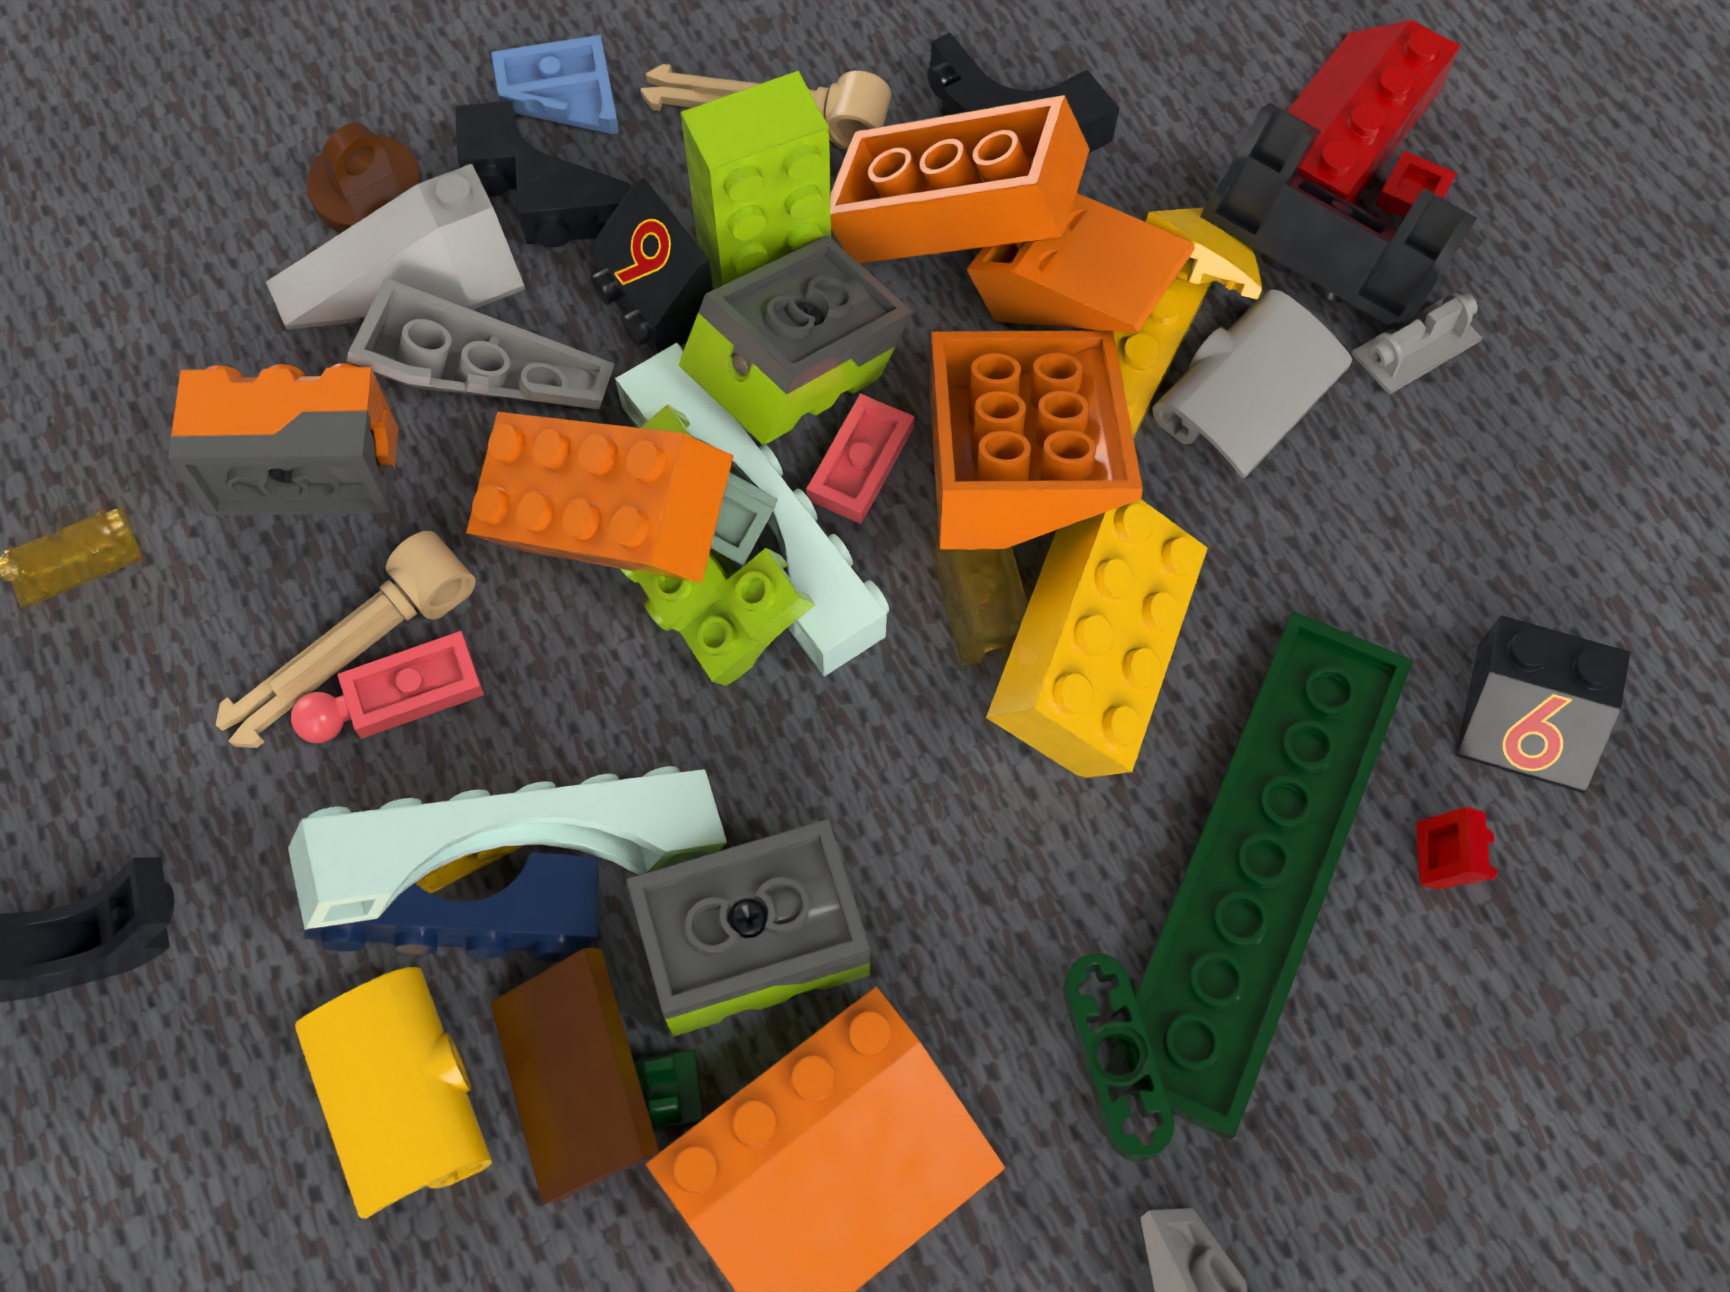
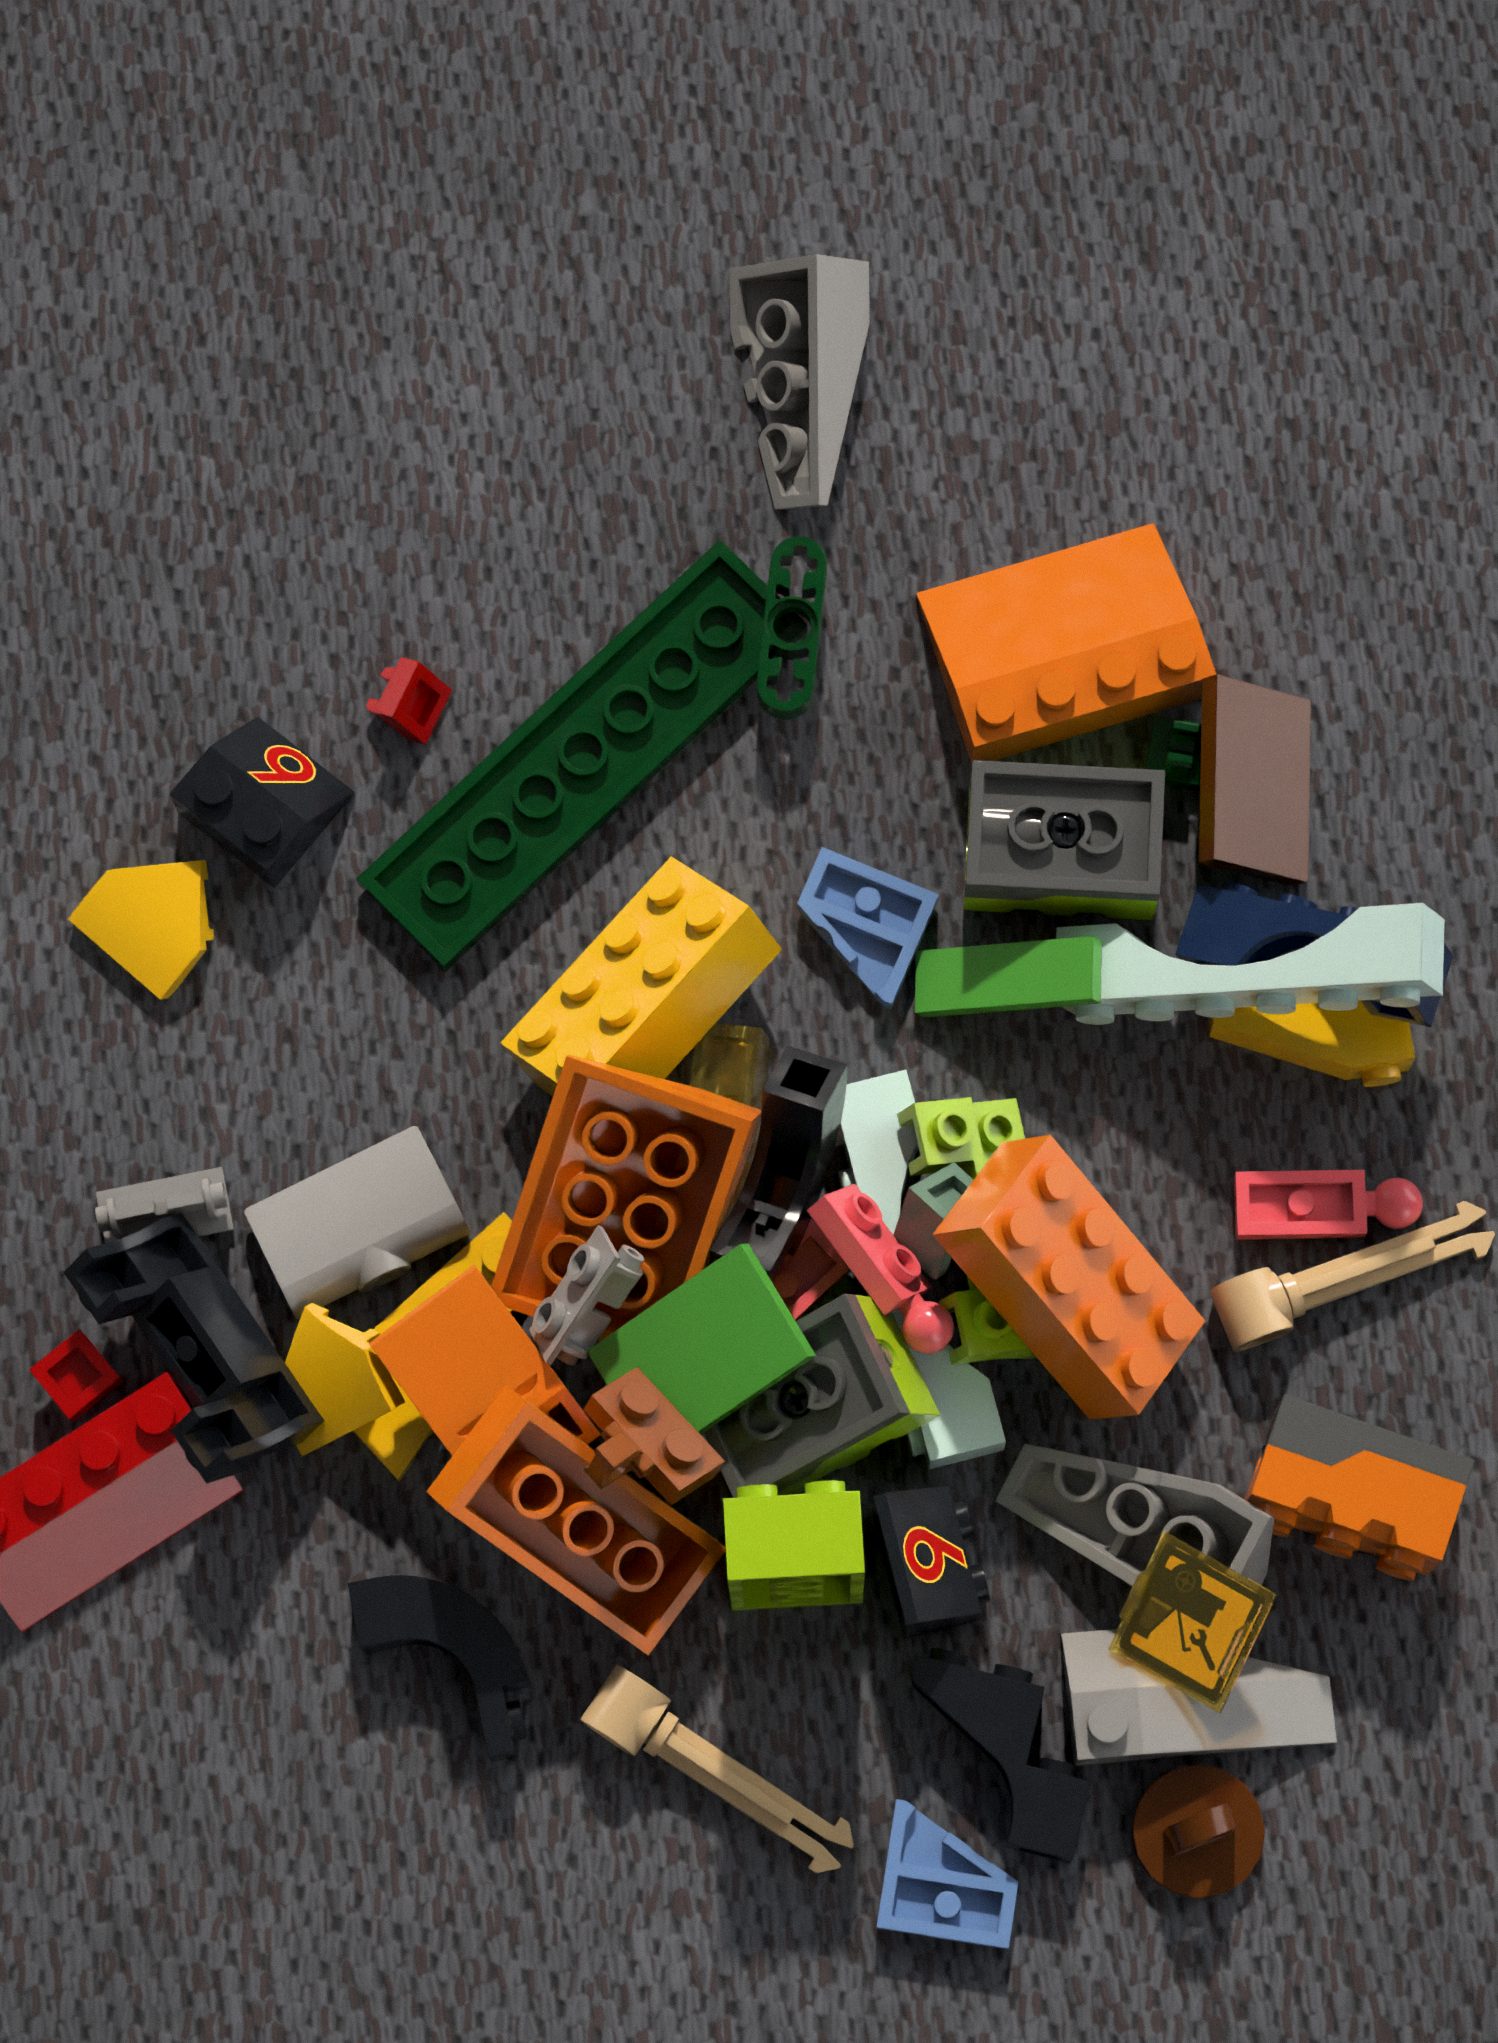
camera: 155 degrees left, 10 degrees up
(392, 1090) = (1412, 823): yellow panel -> none
(401, 283) = (1191, 1621): none -> clear yellow piece
(755, 780) = (1008, 976): none -> bright green tile
(779, 460) = (883, 1266): none -> coral plate
(897, 530) = (790, 1160): none -> black arch
(904, 320) = (710, 1341): none -> bright green tile
(918, 803) = (867, 920): none -> medium blue wing
(921, 226) = (648, 1437): none -> dark orange hinge
(1028, 335) = (567, 1320): none -> light grey hinge
(1572, 567) = (150, 921): none -> yellow slope

